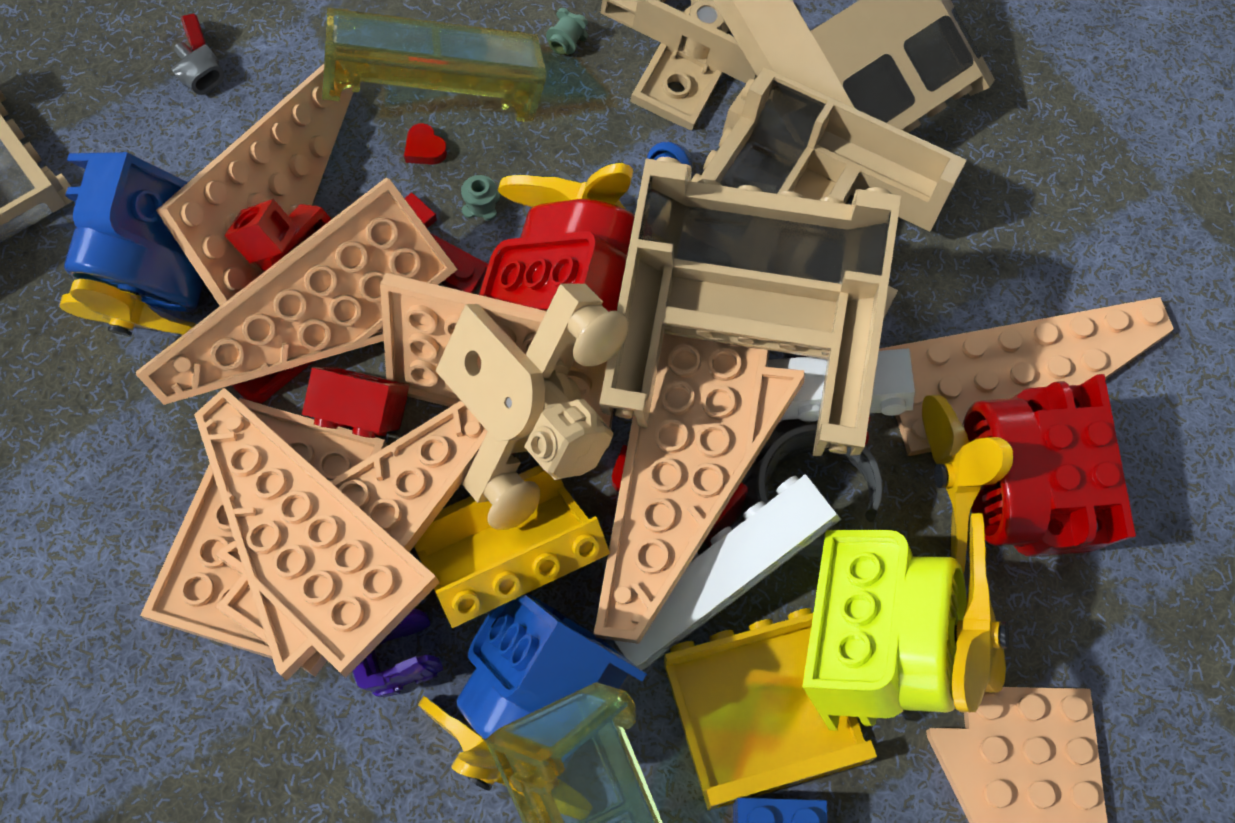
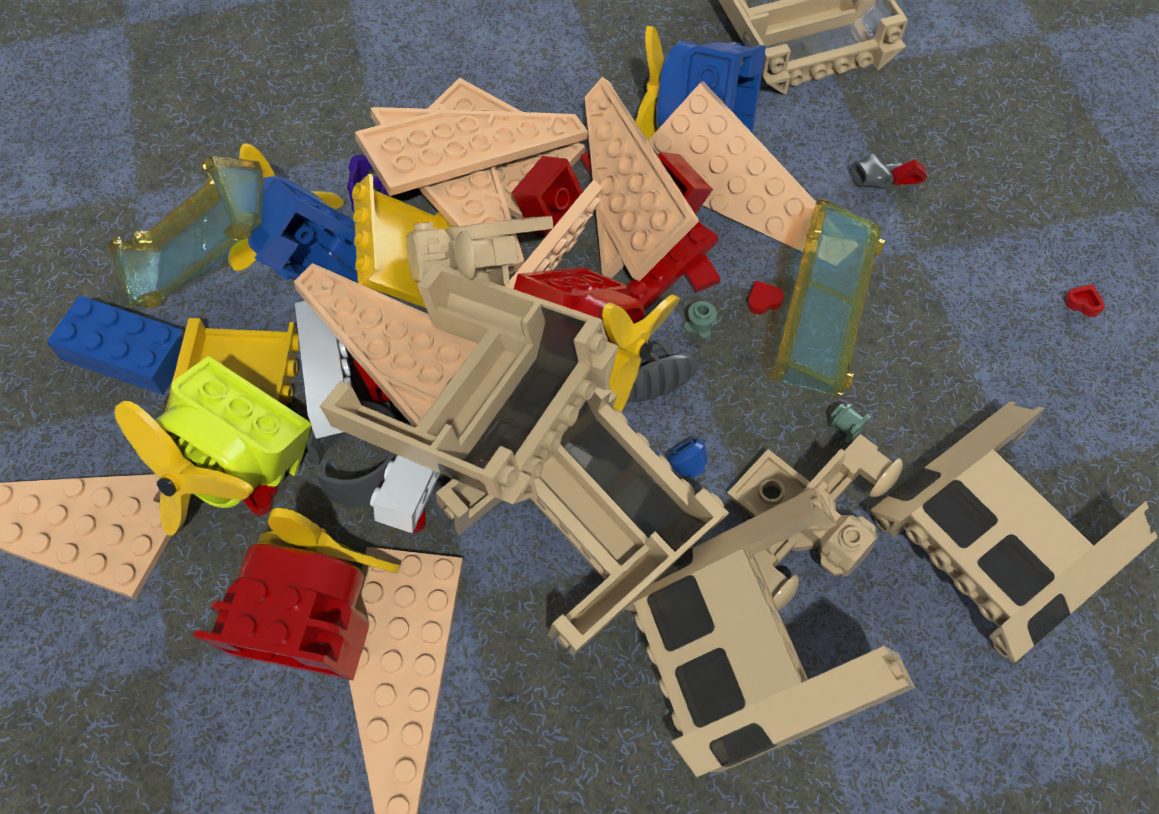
camera: 110 degrees right, 5 degrees down
(261, 231) = (683, 149): red brick -> none

